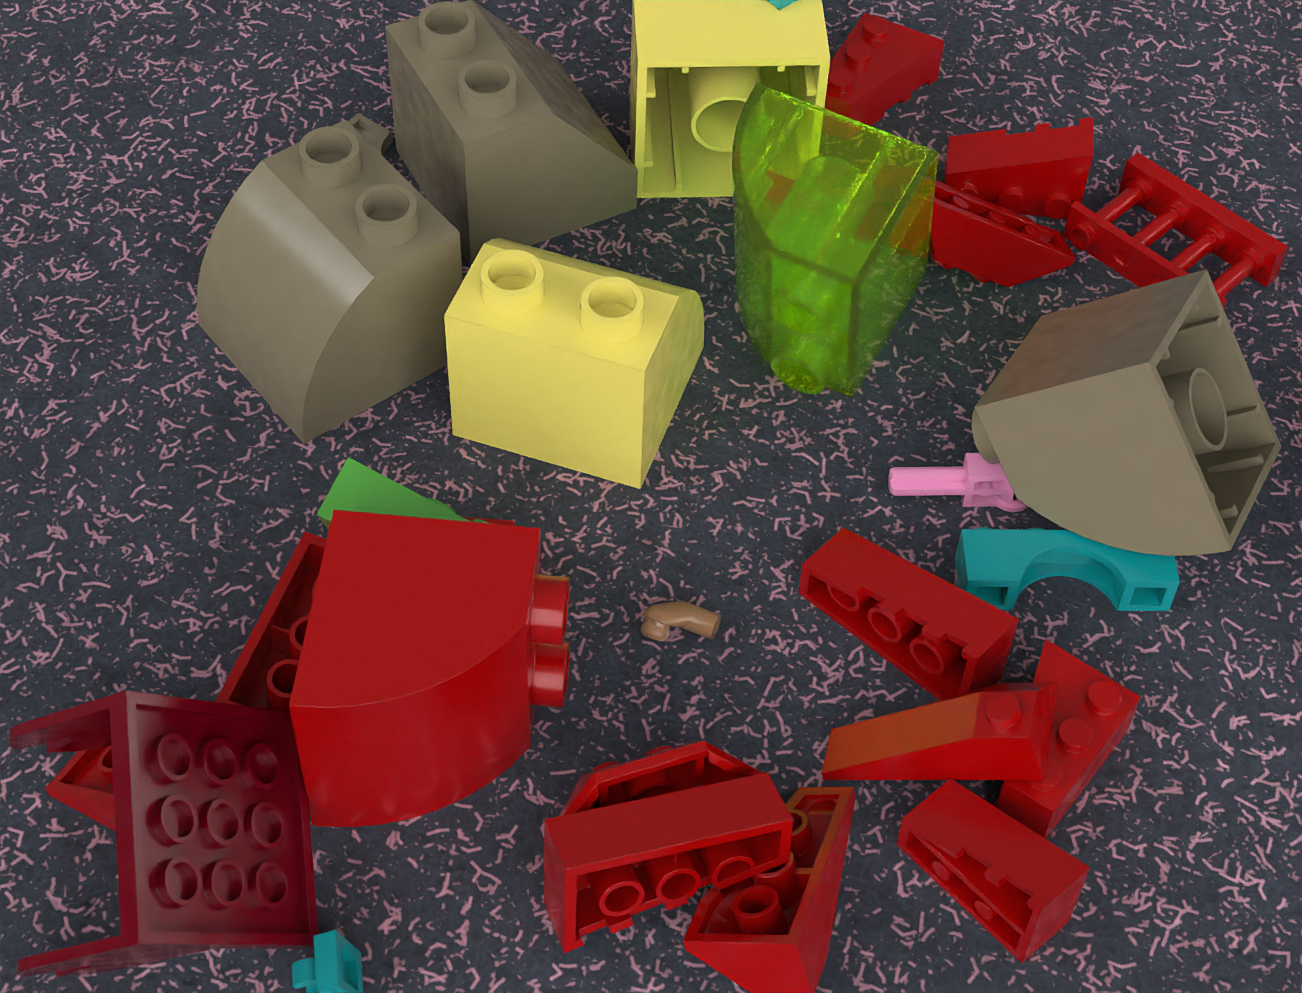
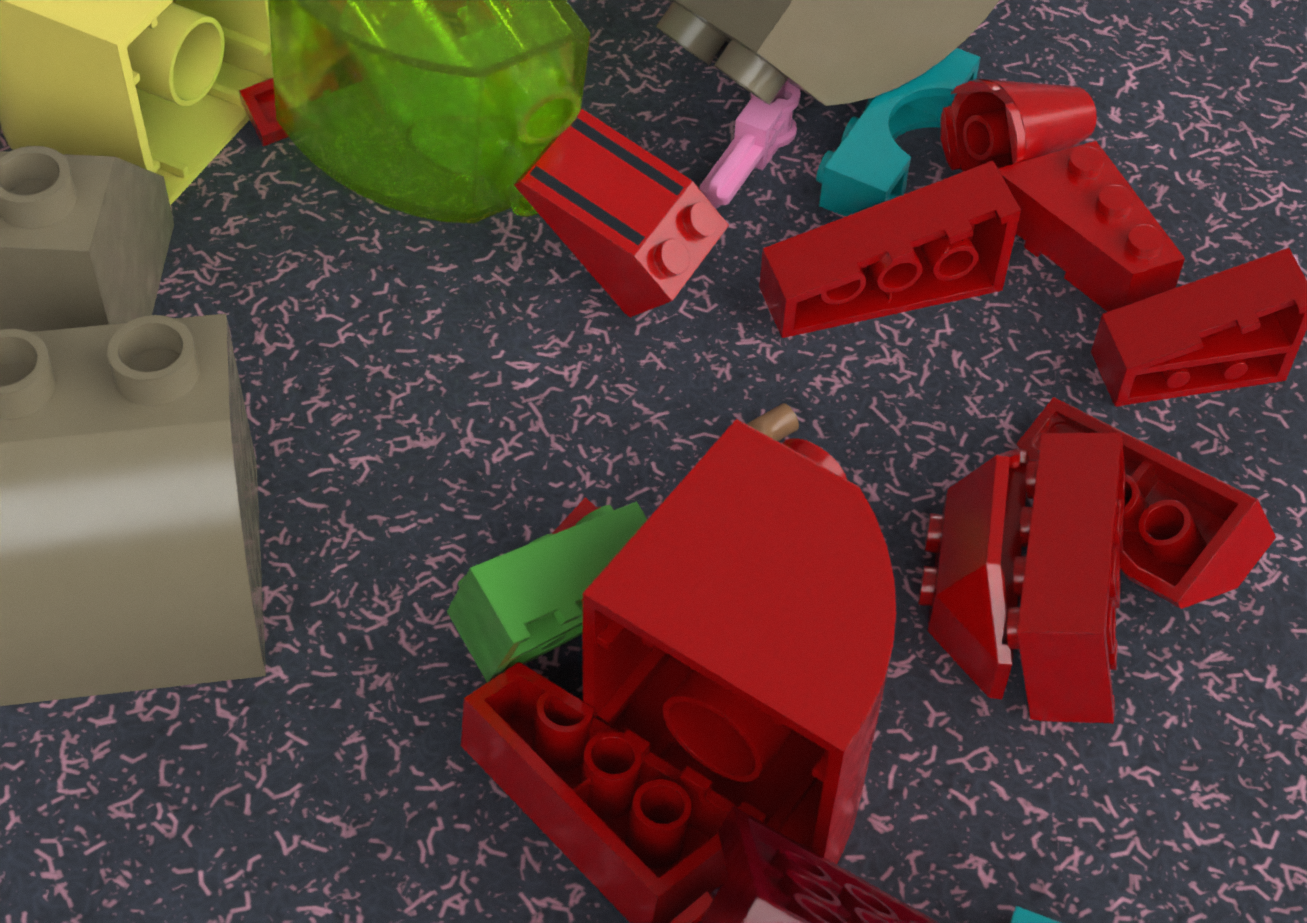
camera: 60 degrees left, 0 degrees up
(569, 359) = (404, 343): light yellow brick -> none
(801, 420) = (622, 213): none -> red slope
(968, 736) = (1060, 282): red wedge -> none
(1136, 646) = (1013, 122): none -> red cone

